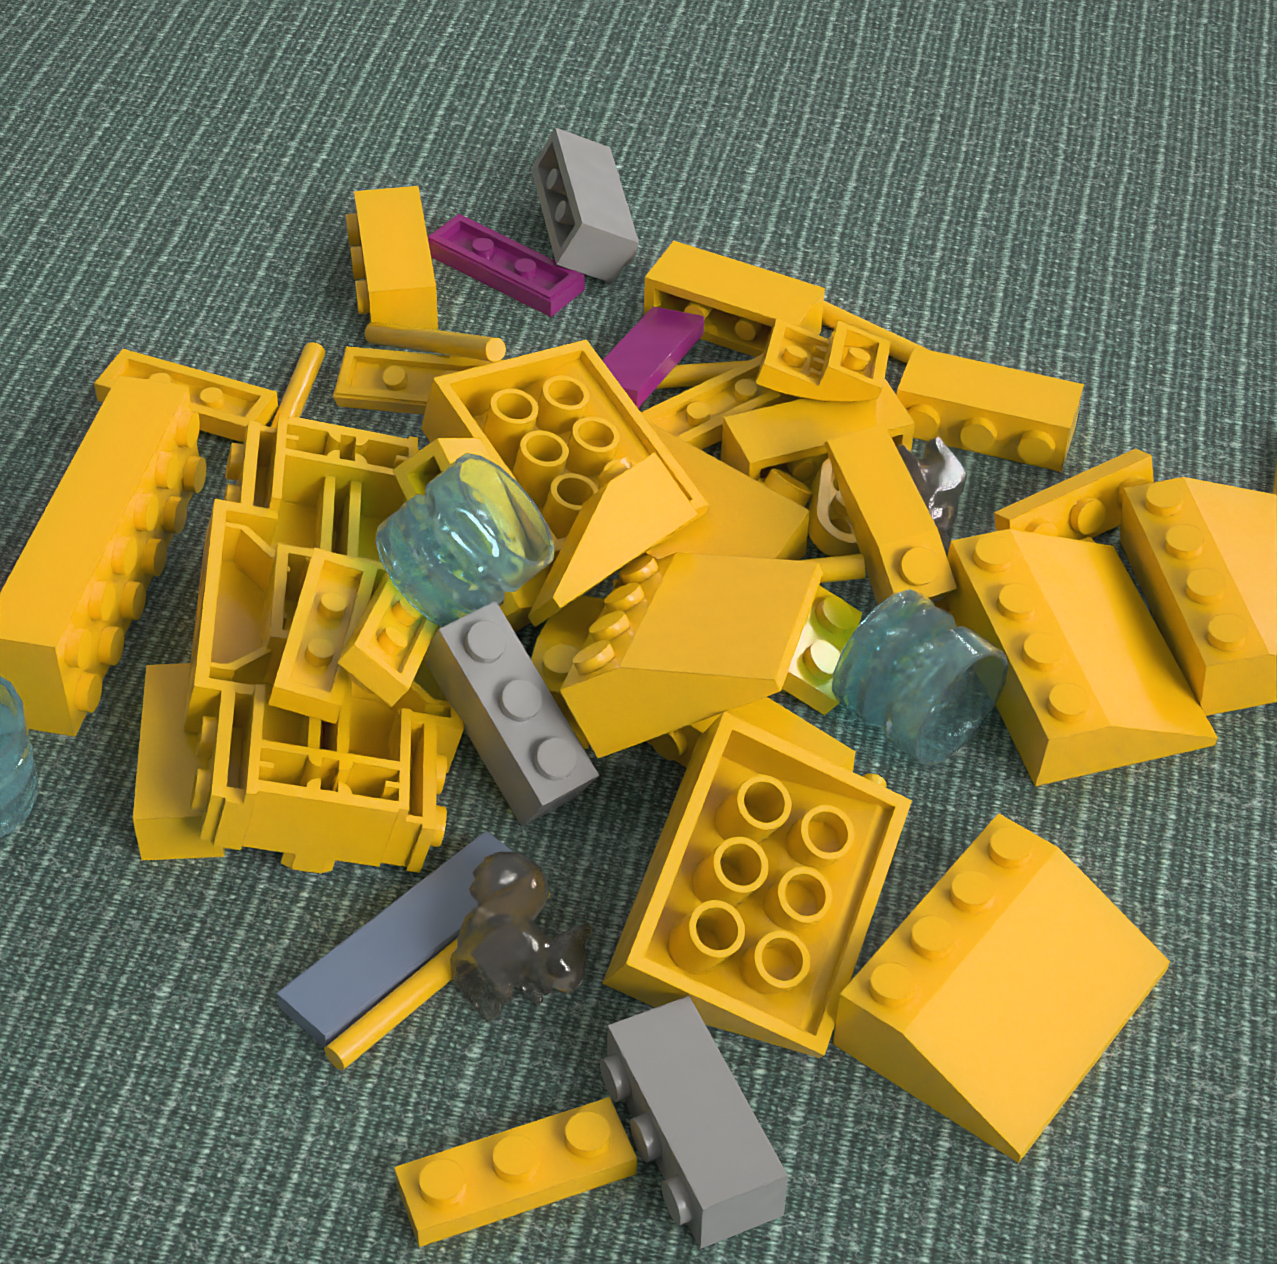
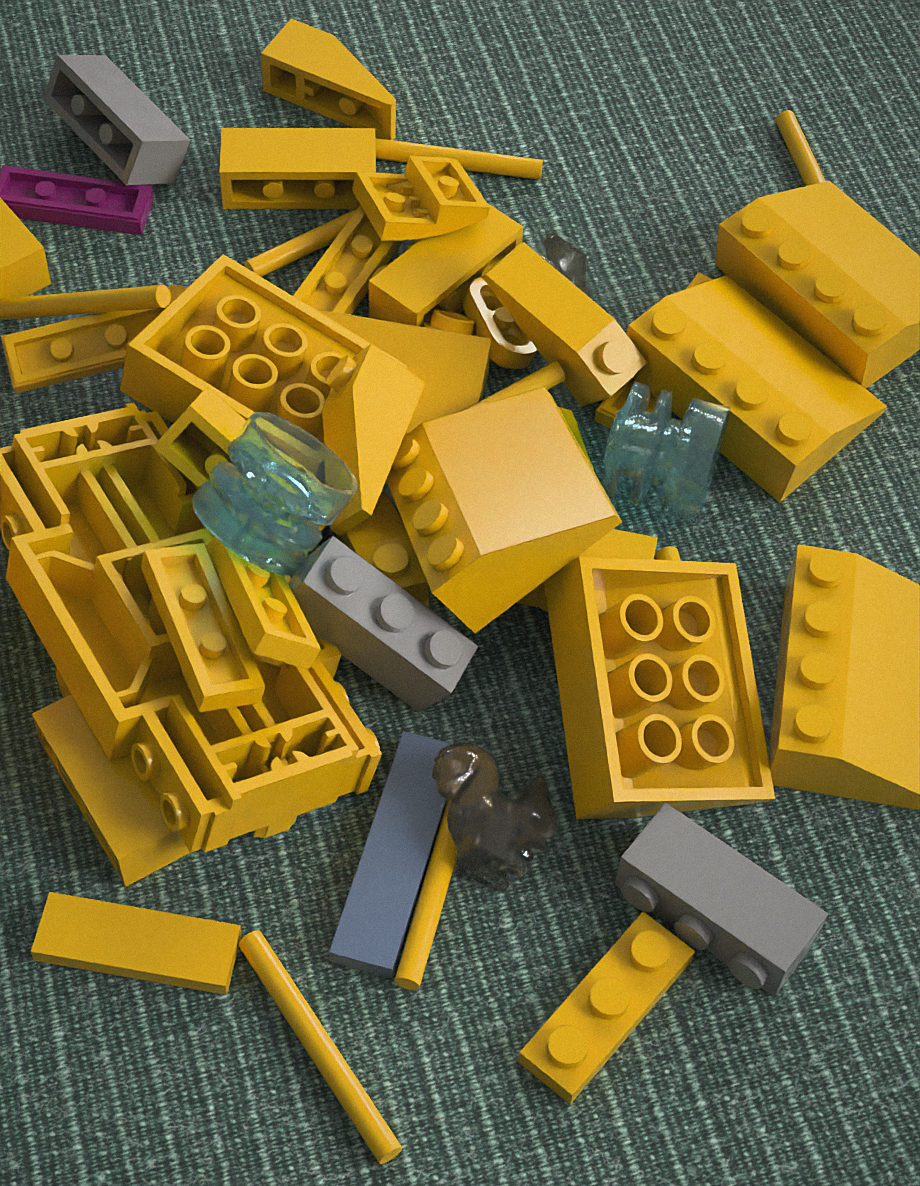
camera: 30 degrees left, 10 degrees up
(115, 910) = (137, 943): none -> yellow tile
(213, 1079) = (320, 1047): none -> yellow bar
(653, 350) = (261, 235): magenta tile -> none
(812, 232) = (327, 79): none -> yellow slope
(990, 408) = (564, 186): yellow brick -> none
(1082, 504) = (681, 249): yellow plate -> none

